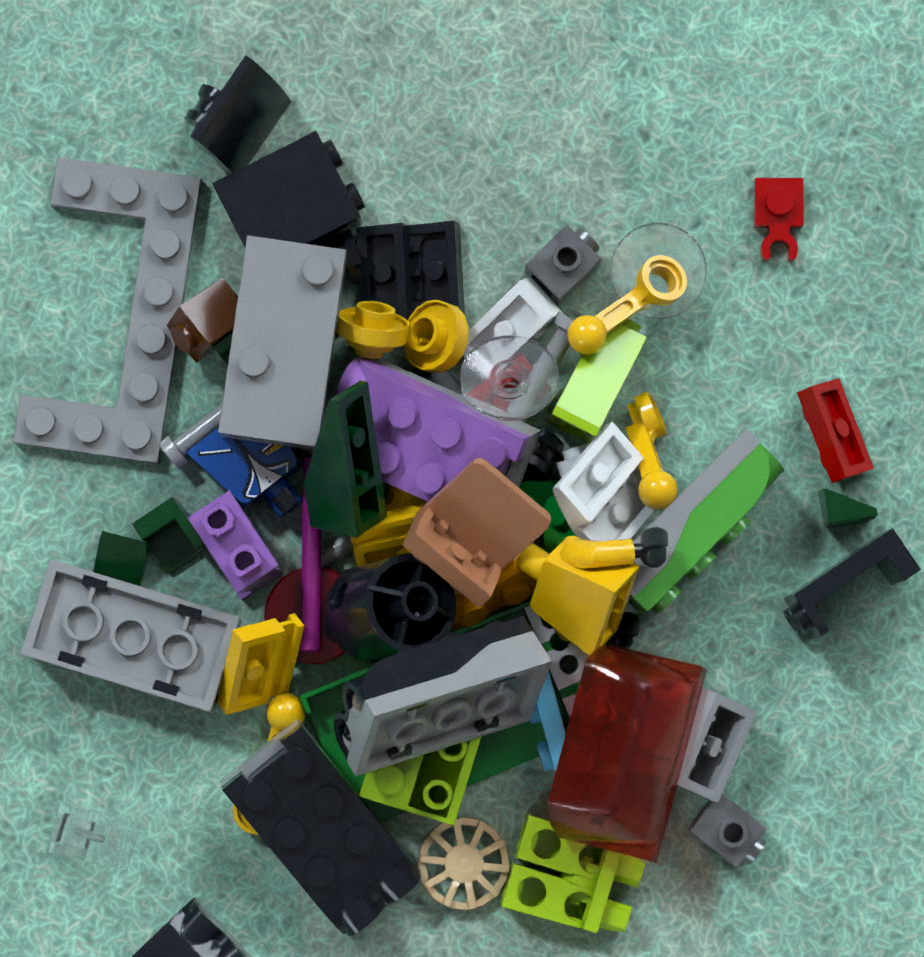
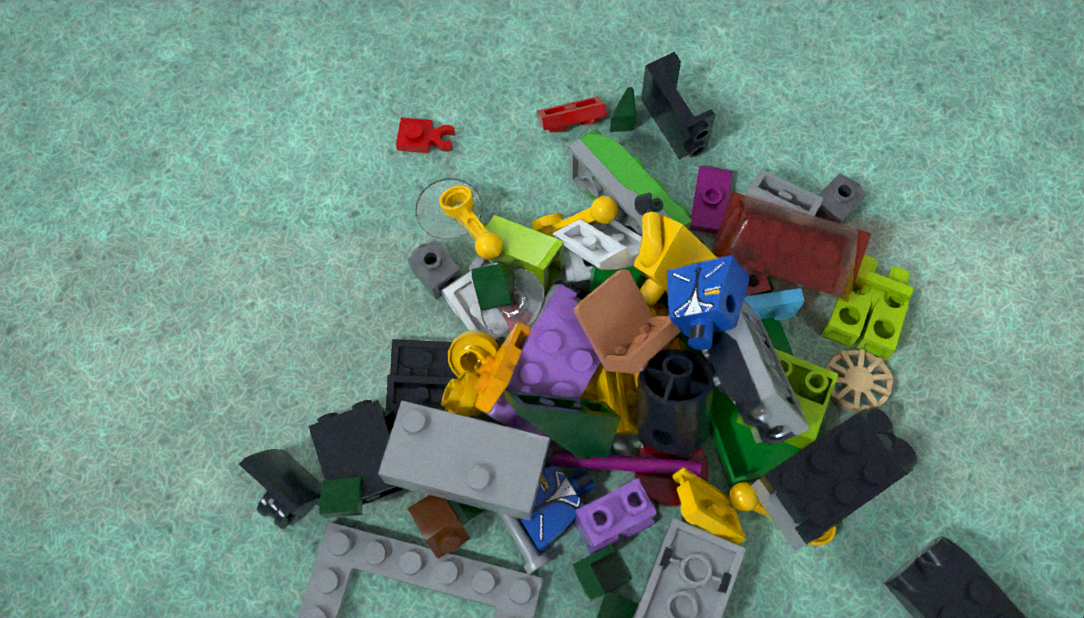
camera: 80 degrees left, 15 degrees down
(224, 191) = (341, 497): none -> dark green slope
(406, 370) = (498, 370): none -> light orange wing
(513, 631) = (706, 298): none -> blue torso
(527, 350) = (493, 286): none -> dark green slope
(720, 646) = (710, 199): none -> magenta plate

